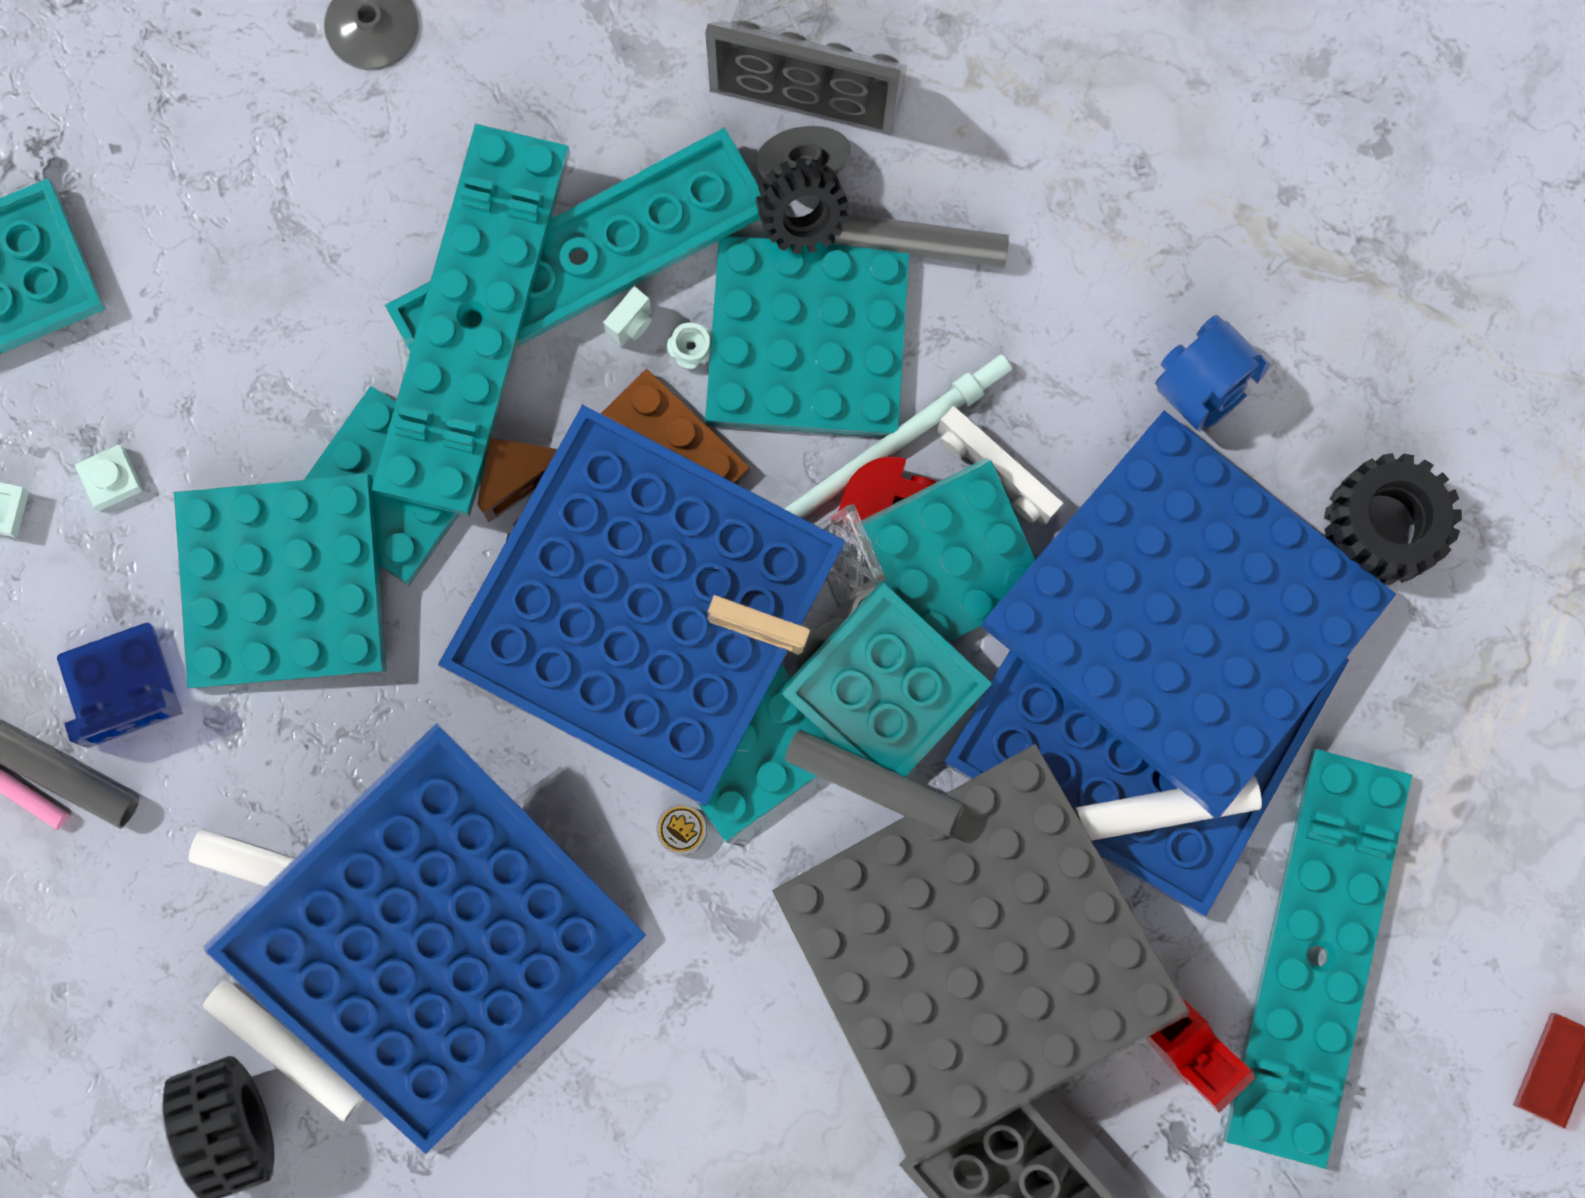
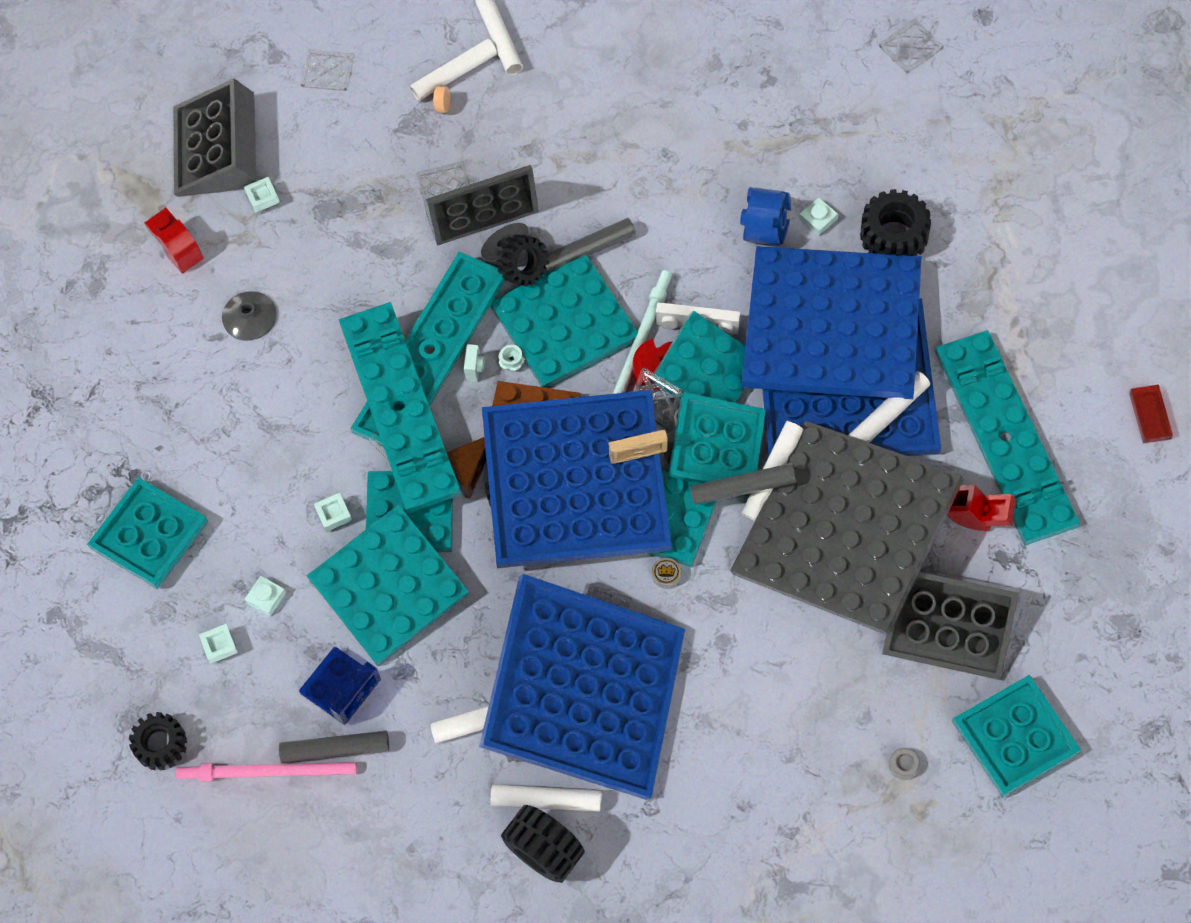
camera: 25 degrees left, 15 degrees down
(281, 415) = (332, 512): none -> light aqua plate
(946, 778) = (779, 456): none -> white piece
(1293, 420) = (818, 216): none -> light aqua plate

